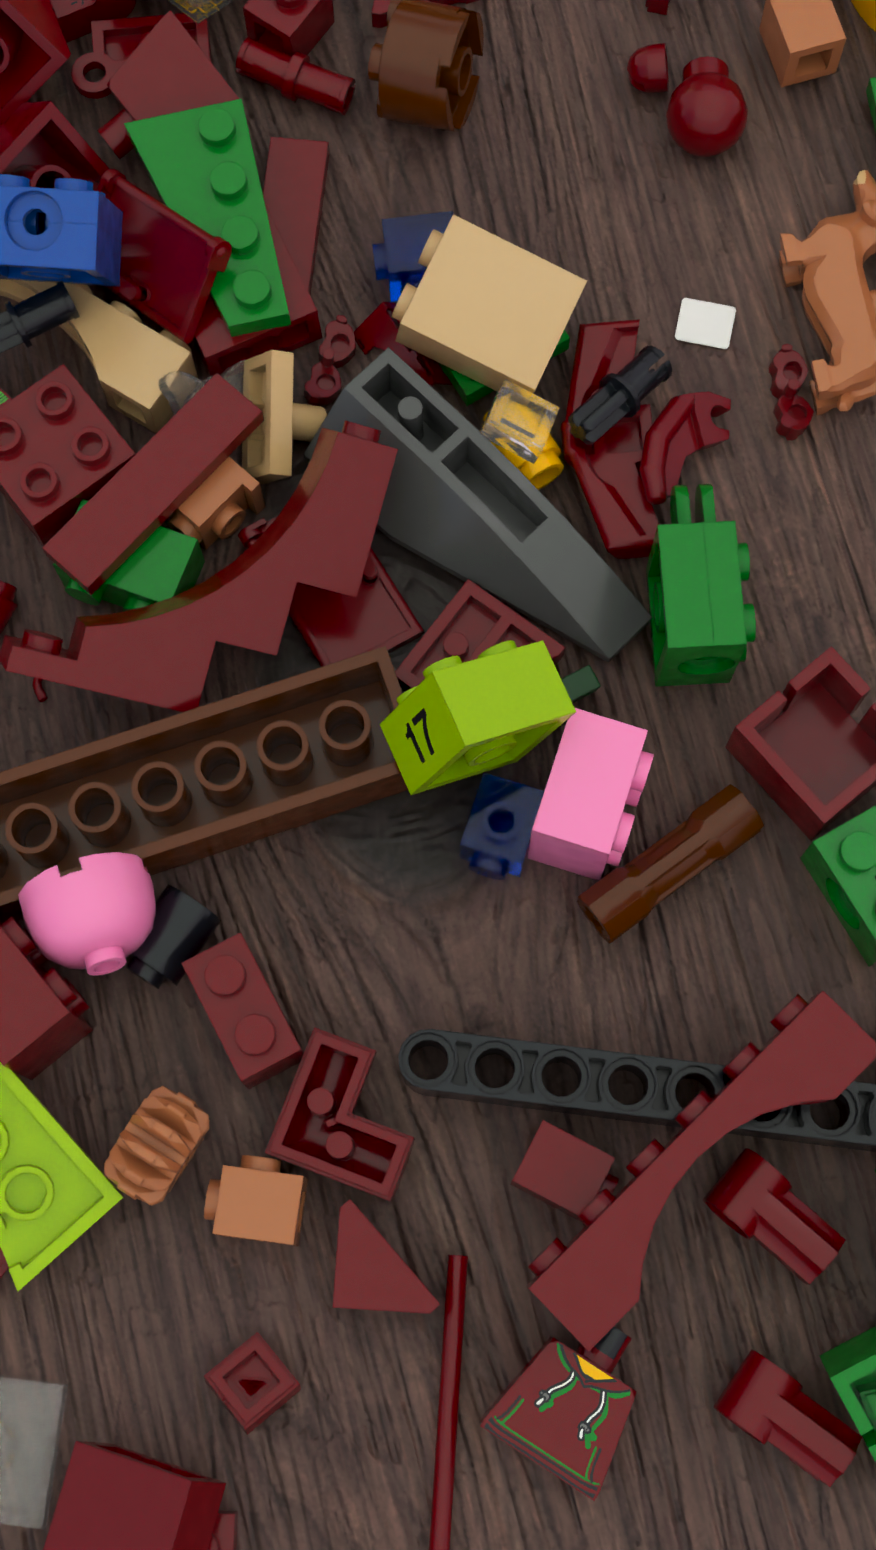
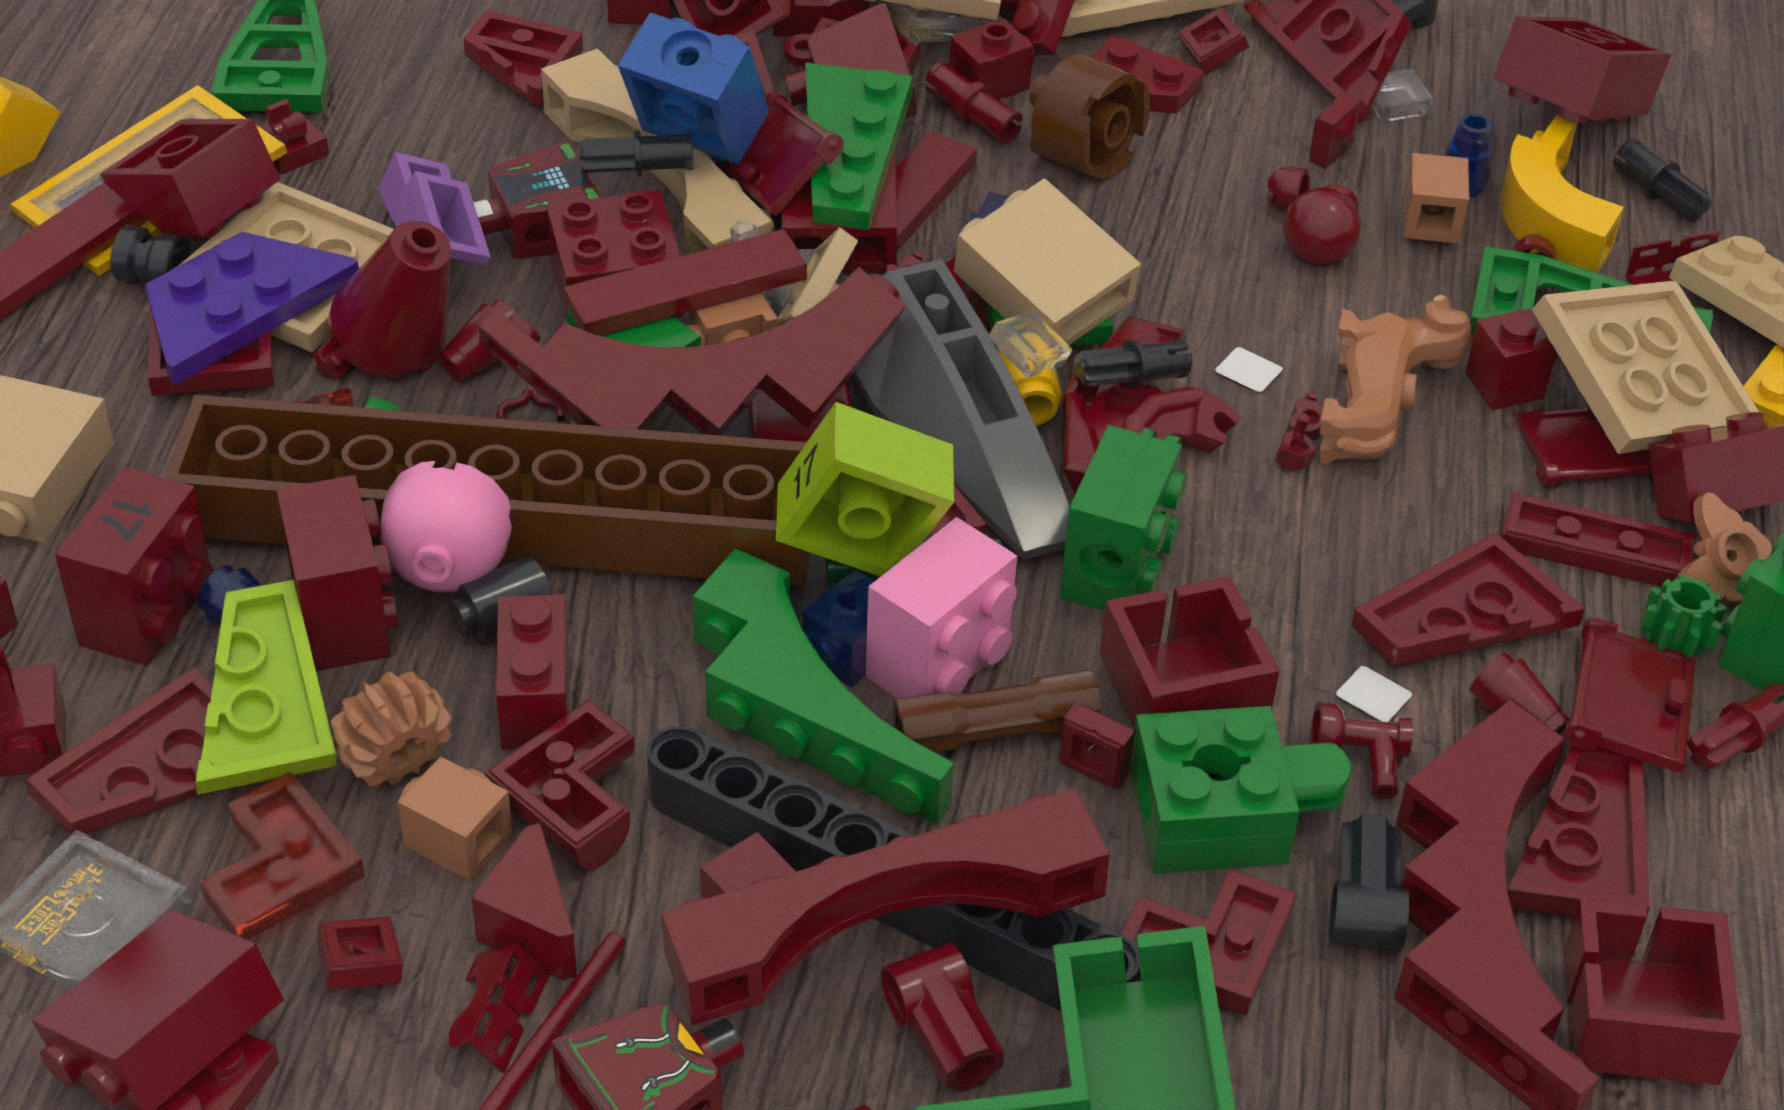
camera: 20 degrees right, 30 degrees down
(147, 1313) = (294, 865): none -> clear red plate
(372, 1341) = (489, 972): none -> dark red piece
(475, 929) = (788, 698): none -> green arch
(775, 864) = (1096, 745): none -> dark red tile

